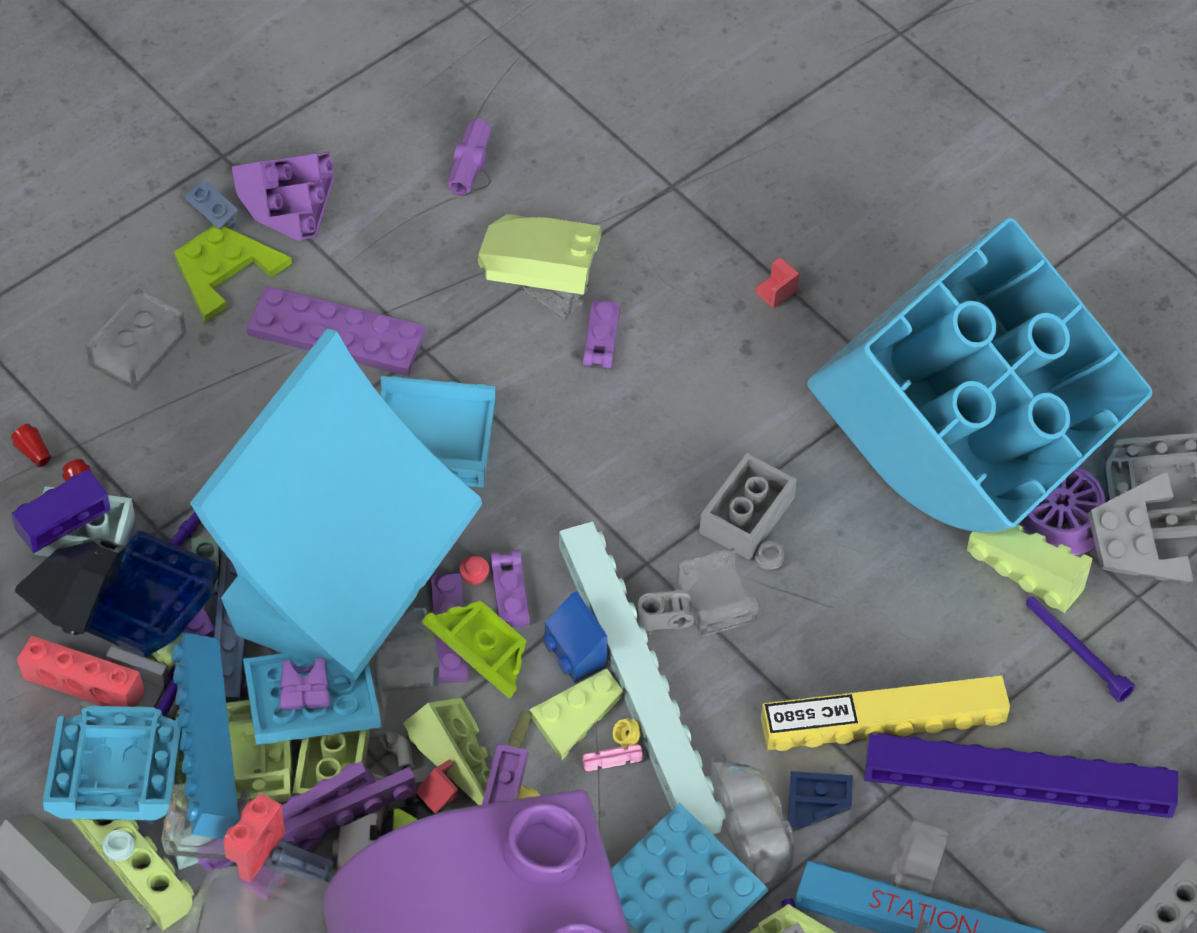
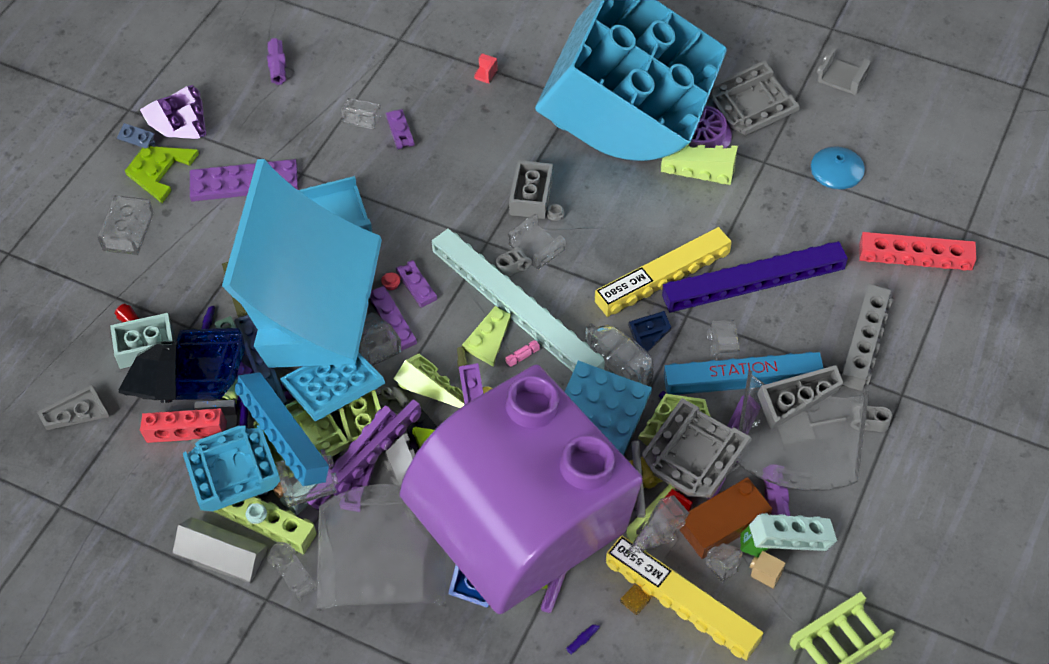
camera: 20 degrees left, 0 degrees up
(30, 443) = (88, 307): red cone -> none
(60, 511) = (128, 334): dark purple brick -> none
(255, 836) = (342, 472): coral plate -> none
(295, 858) = (362, 479): sand blue hinge -> none
(306, 690) = (330, 379): medium lavender piece -> none
(437, 789) = (432, 407): coral panel -> none
(482, 641) = (416, 317): lime wing -> none
(539, 252) = (344, 96): yellowish green wedge -> none
(576, 639) = (471, 294): blue slope -> none
(627, 732) = (520, 336): light yellow plate -> none
(1119, 686) = (780, 210): dark purple piece -> none
(1126, 538) = (745, 131): light grey wing -> none

